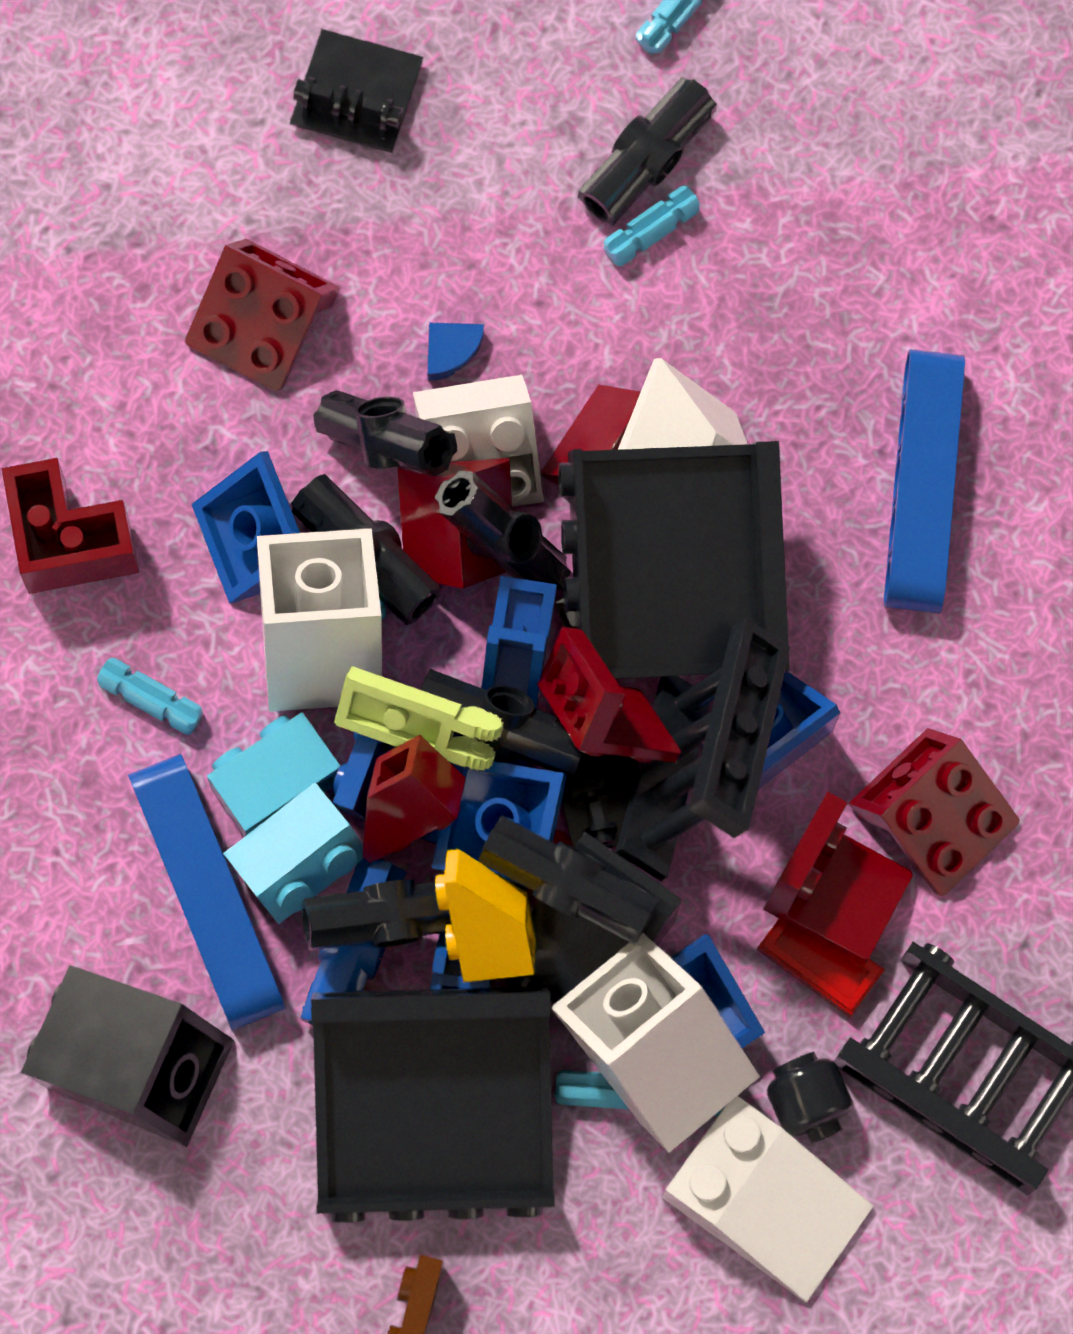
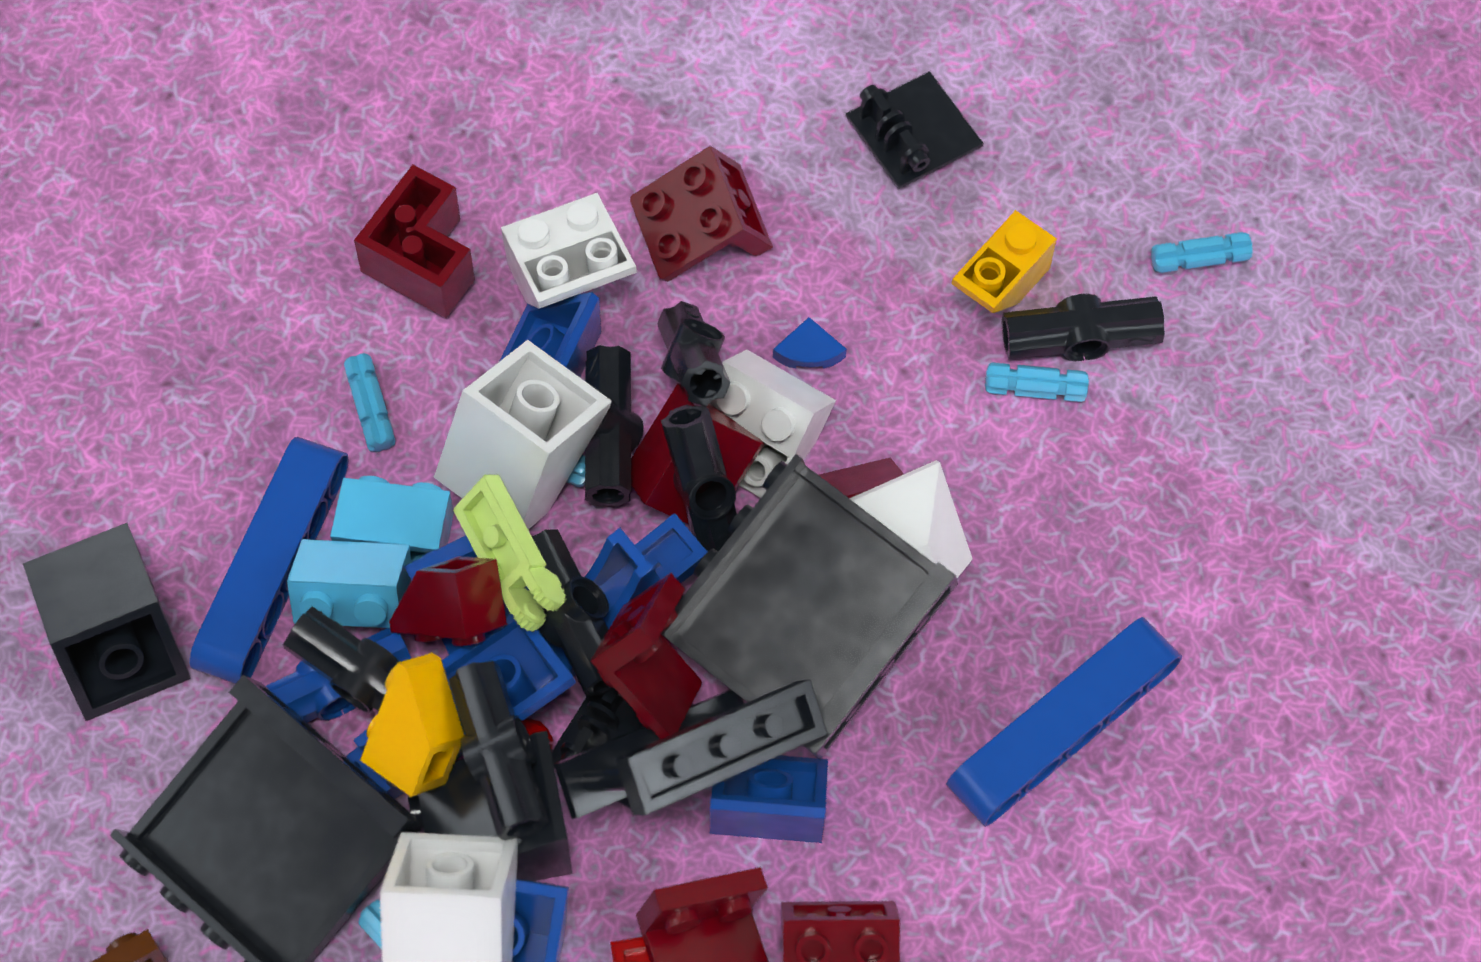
camera: 45 degrees right, 10 degrees down
(197, 437) = (565, 251): none -> white slope
(547, 147) = (1007, 264): none -> yellow slope

